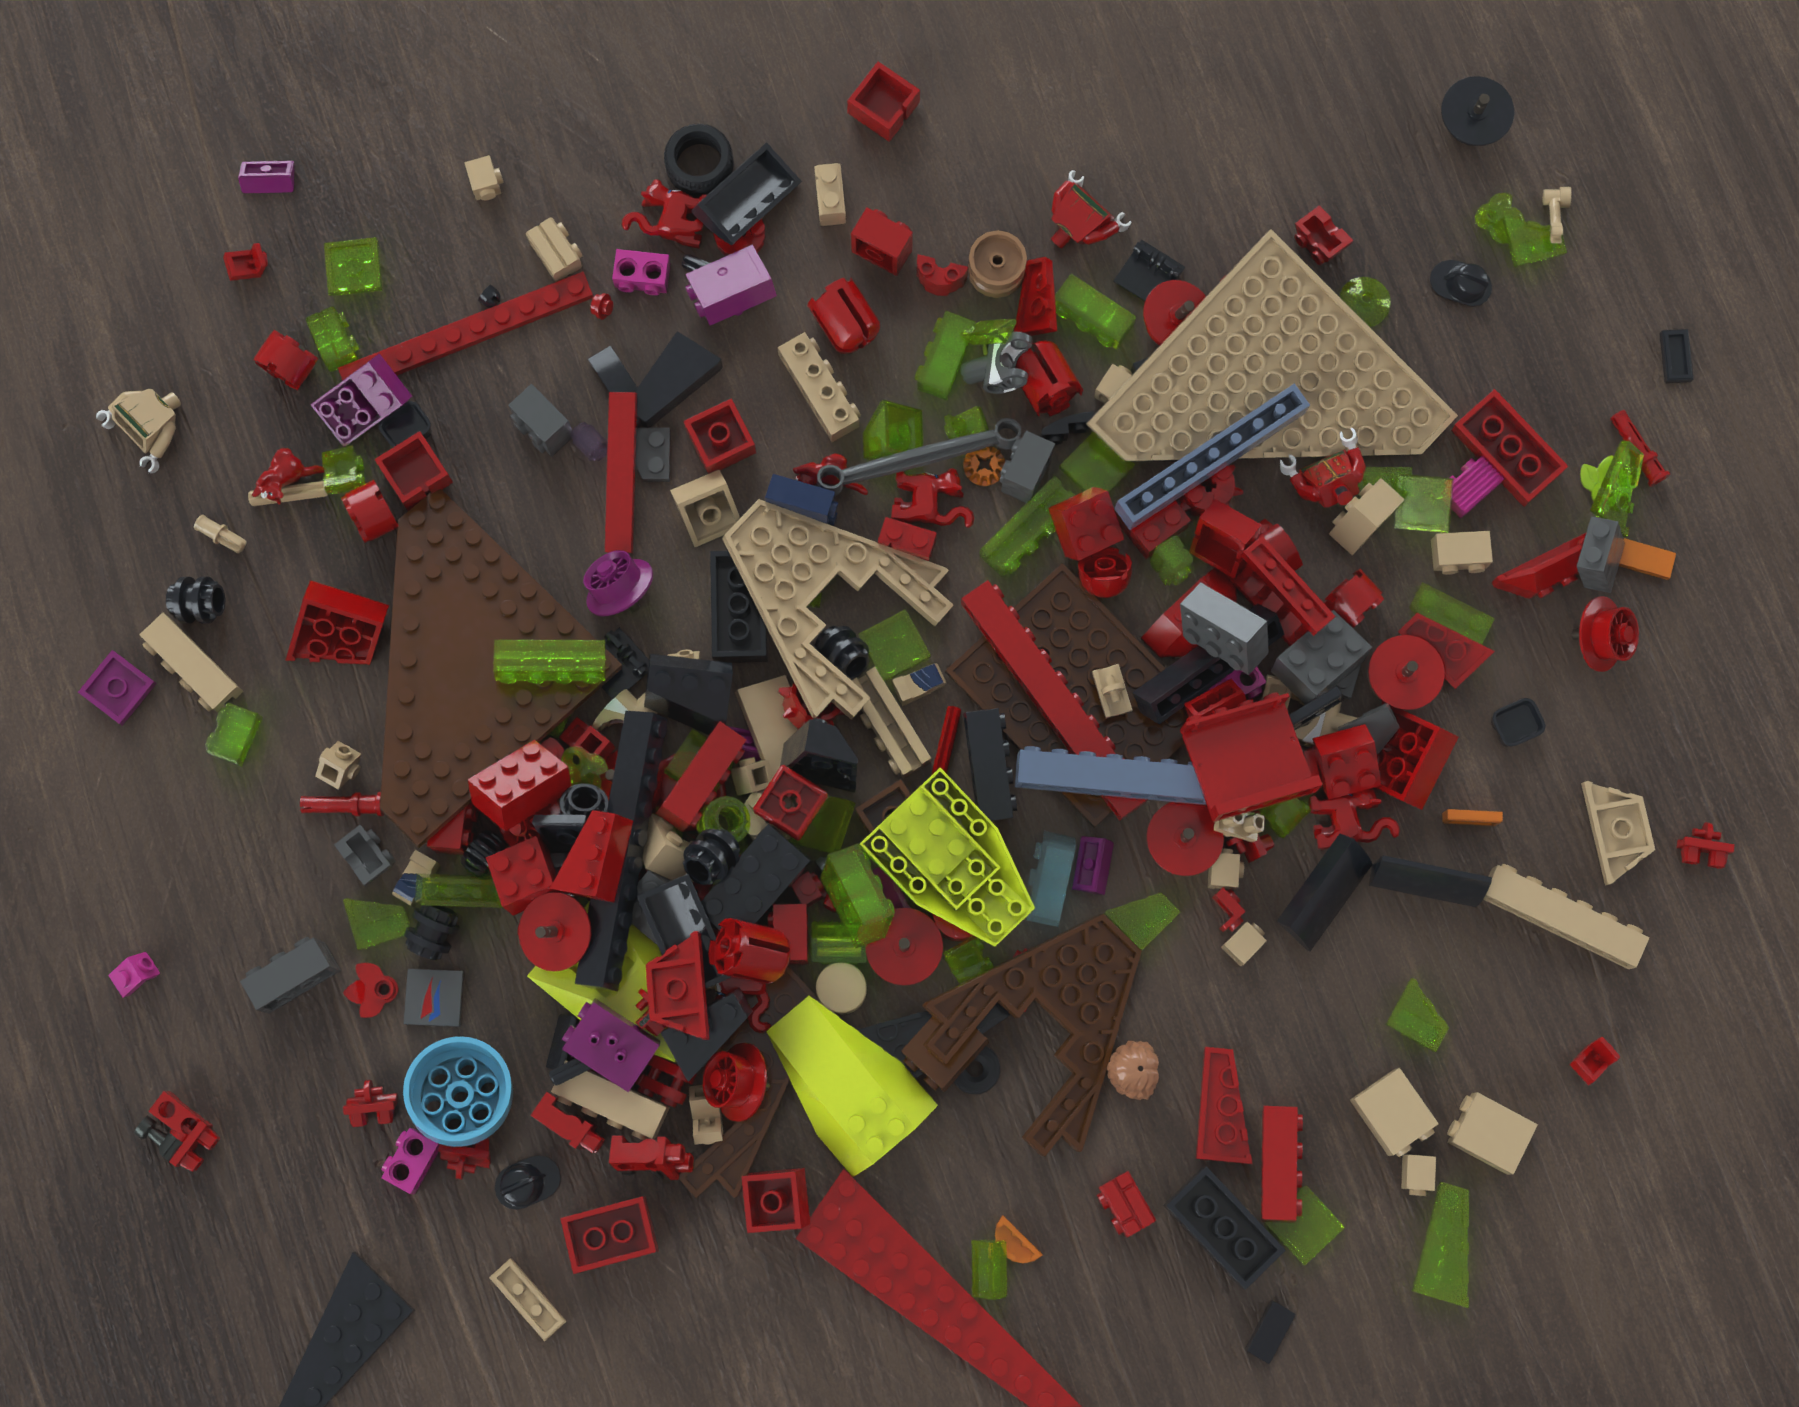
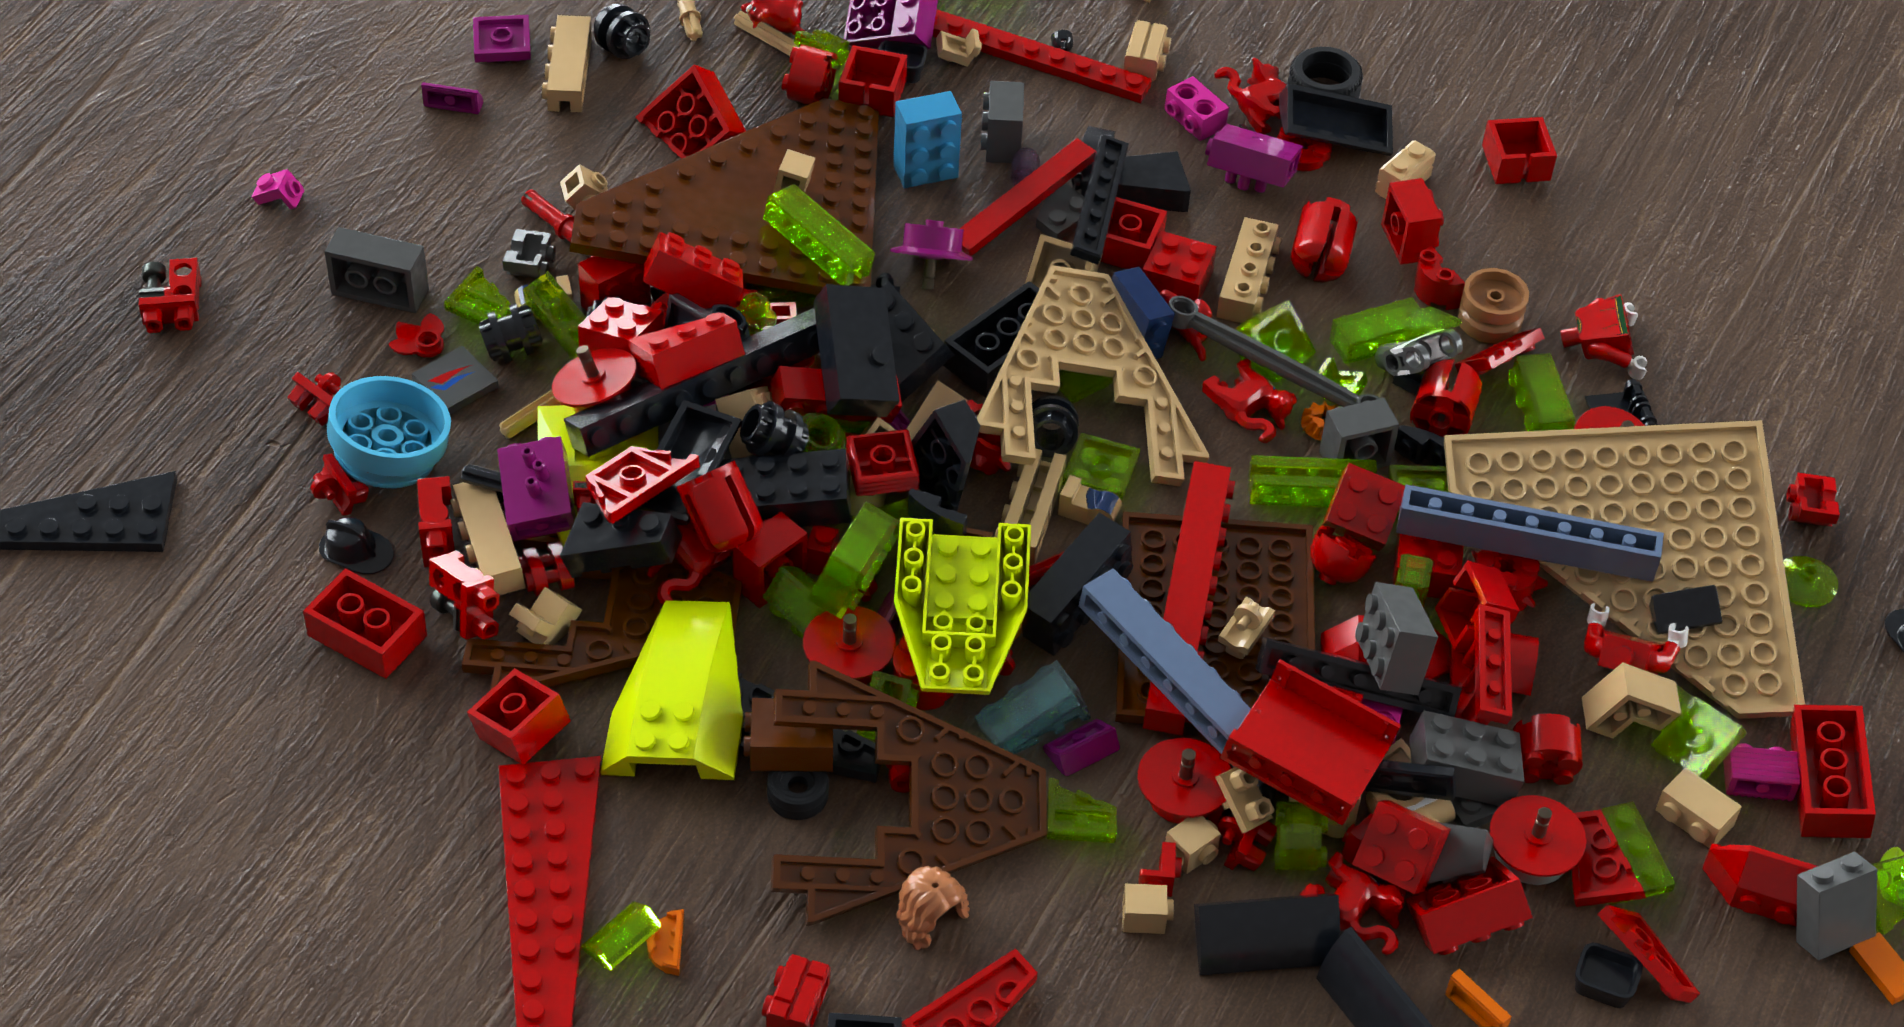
camera: 45 degrees right, 30 degrees down
(148, 774) = (451, 98): none -> magenta slope
(233, 734) = (540, 121): clear neon green brick -> none
(417, 1164) = (294, 453): dark pink brick -> none
(430, 375) = (958, 49): none -> tan bracket
(474, 622) = (794, 169): none -> tan brick
(511, 964) = (526, 416): none -> tan axle
(518, 496) = (927, 139): none -> dark azure brick
(528, 1299) = (248, 619): tan tile -> none
(601, 305) = (1139, 105): red plate -> none
(683, 435) = (1099, 199): none -> black tile
(695, 744) = (856, 351): none -> black brick
(736, 1081) = (593, 596): red piece -> none
(778, 433) = (1180, 265): none -> red brick
(841, 988) = (763, 638): tan head -> none
(854, 808) = (928, 506): none -> black slope
(907, 538) = (1201, 408): red brick -> none
(1338, 414) = (1686, 607): none -> black slope
(1522, 684) = (1650, 951): none -> red wing
(1606, 634) = (1773, 970): red piece -> none

